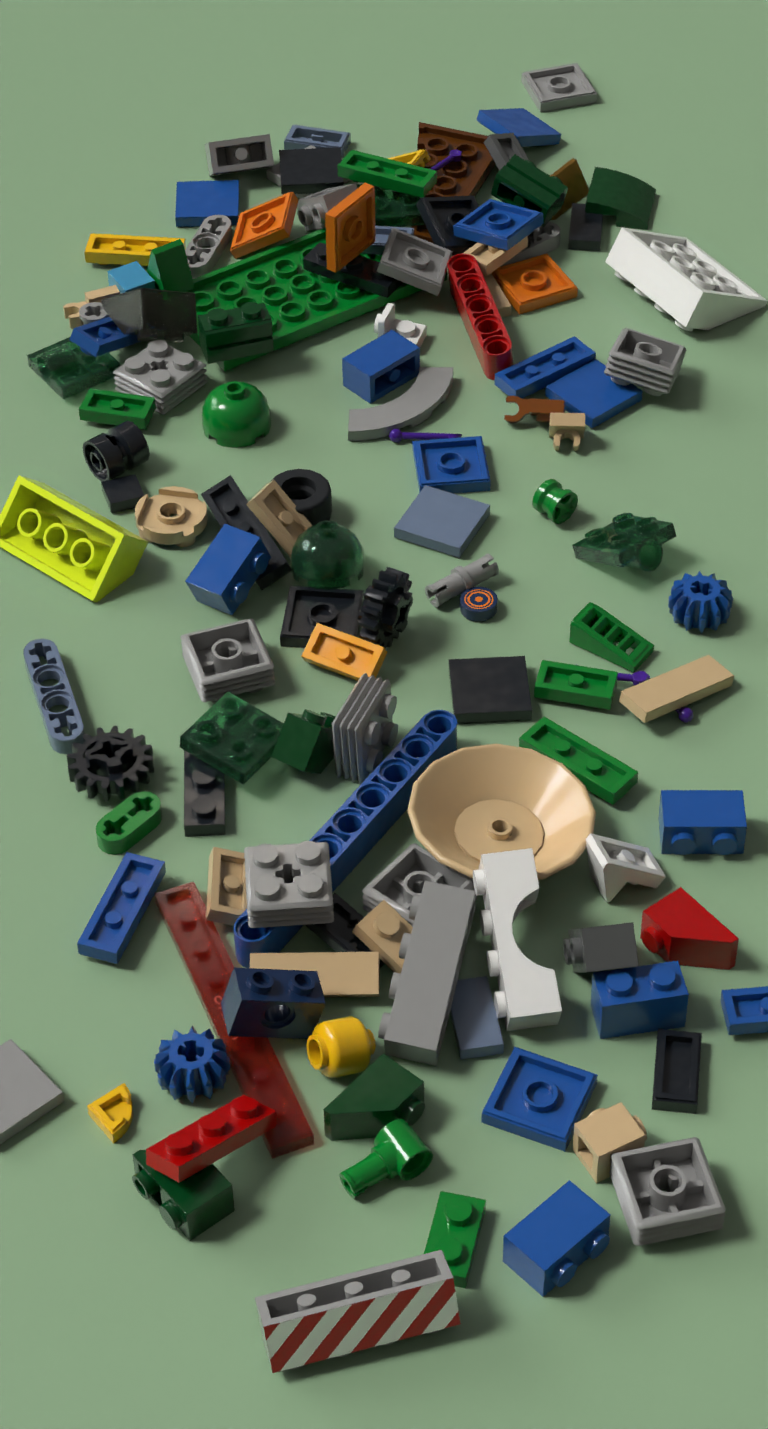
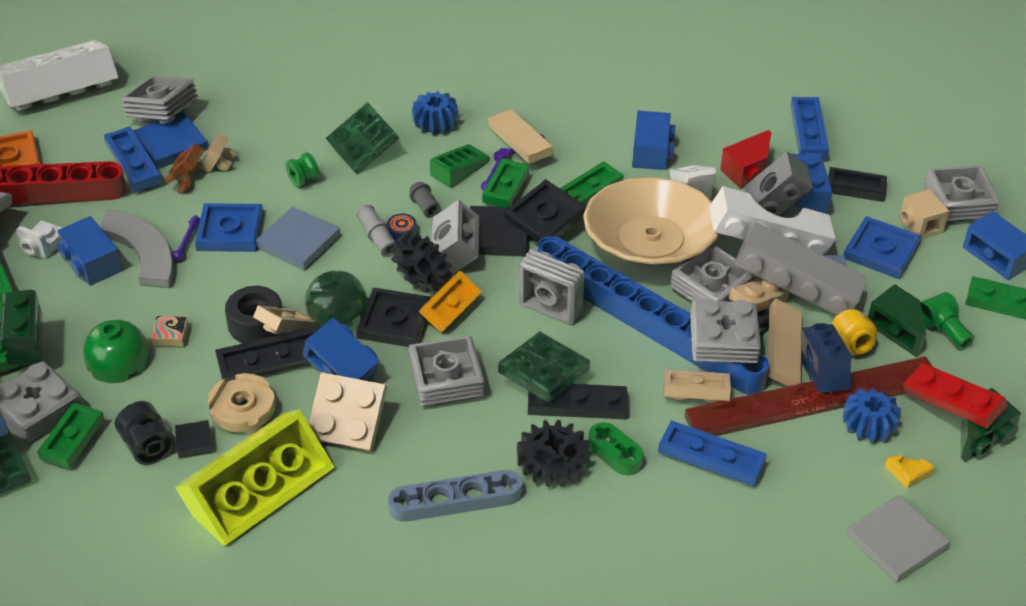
camera: 85 degrees left, 0 degrees up
(153, 587) = (347, 411): none -> tan plate
(275, 449) = (169, 331): none -> tan tile
(306, 741) = (552, 319): dark green slope -> none
(448, 640) = (457, 235): none -> light grey brick
(512, 717) = (545, 212): none -> black tile
(538, 610) = (421, 194): none -> dark grey pin

